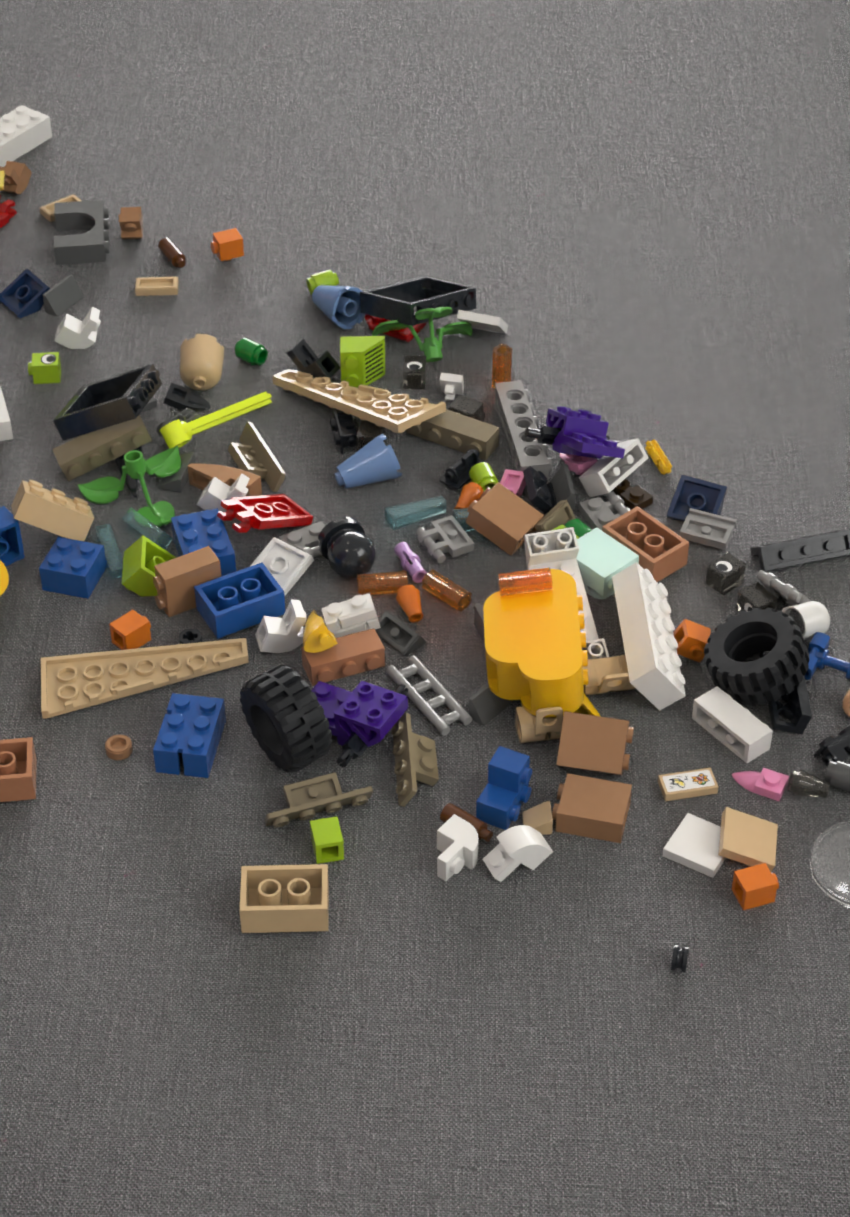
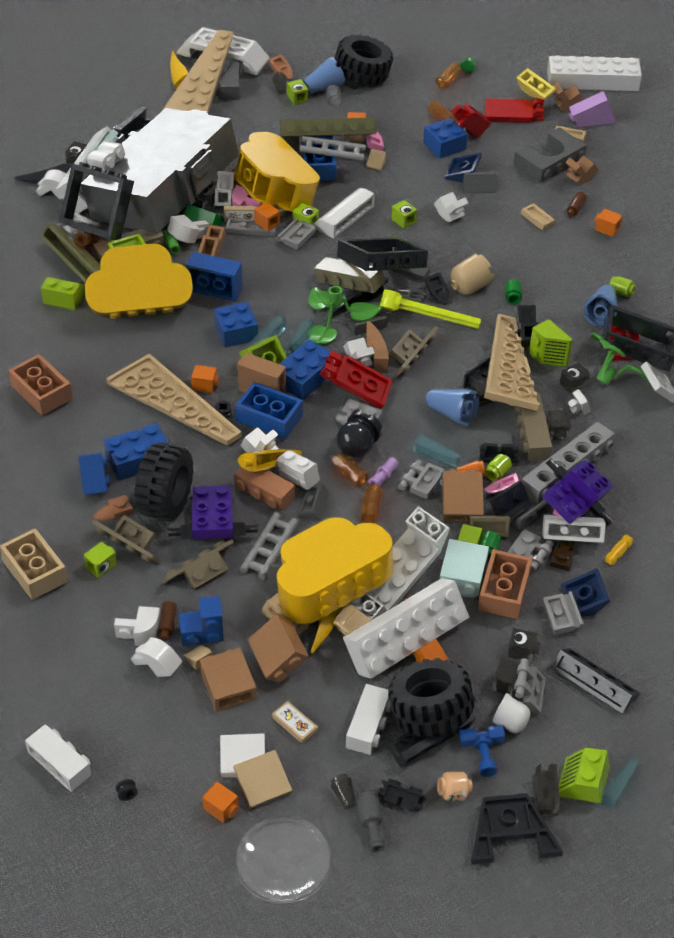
camera: 55 degrees right, 5 degrees up
(52, 511) = (260, 286): tan brick -> none
(55, 172) = (592, 111): none -> lavender slope
(118, 747) = (110, 427): medium nougat tile -> none
(190, 781) = (93, 474): none -> blue brick
(253, 798) = (115, 509): none -> nougat plate
(284, 562) = (321, 413): white tile -> none
(409, 600) = (344, 492): orange cone -> none
(501, 364) = (618, 416): clear orange axle -> none
(525, 581) = (358, 526): clear orange axle -> none
(591, 999) = (58, 757): none -> white brick
(764, 783) = (330, 763): bright pink plate -> none

